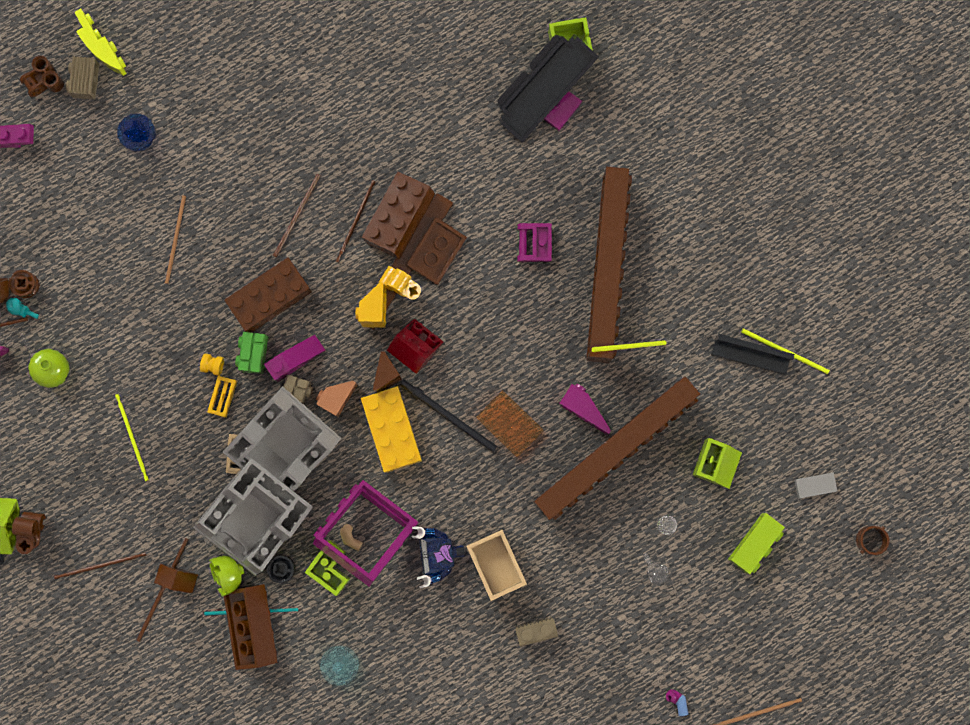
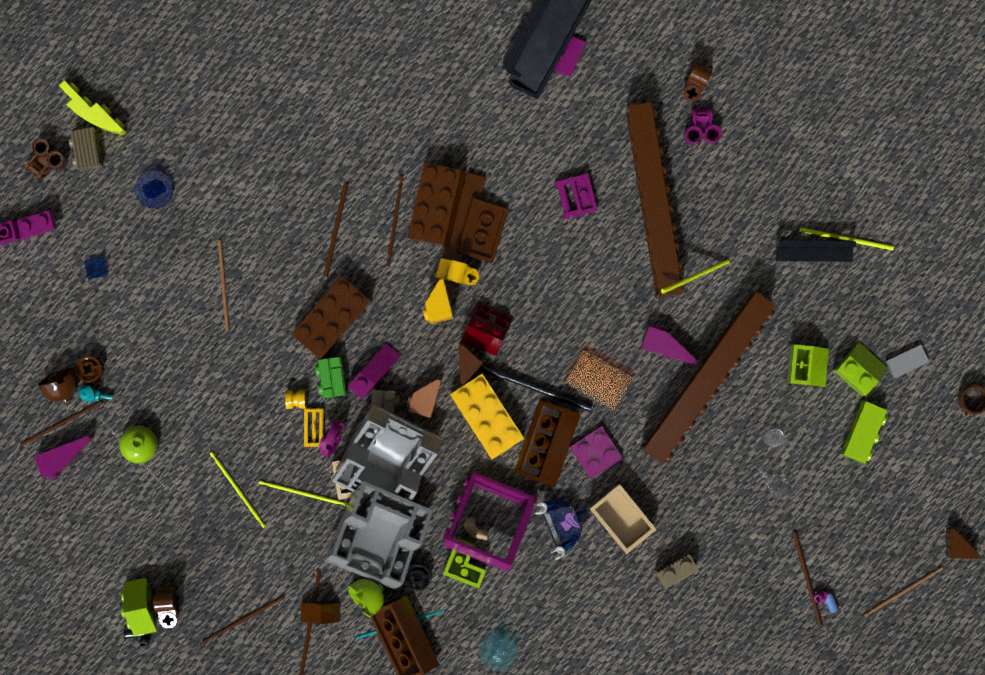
camera: 15 degrees left, 5 degrees up
(59, 191) = (96, 268): none -> clear blue tile
(193, 457) = (303, 493): none -> neon yellow piece
(235, 412) = (331, 441): none -> magenta plate
(443, 471) = (547, 443): none -> reddish brown slope
(488, 493) = (596, 452): none -> magenta plate
(664, 673) = (807, 578): none -> reddish brown axle
(672, 206) = (701, 124): none -> magenta piece
(680, 161) = (697, 79): none -> reddish brown piece
(768, 481) = (860, 369): none -> lime slope
(822, 682) = (958, 547): none -> reddish brown slope

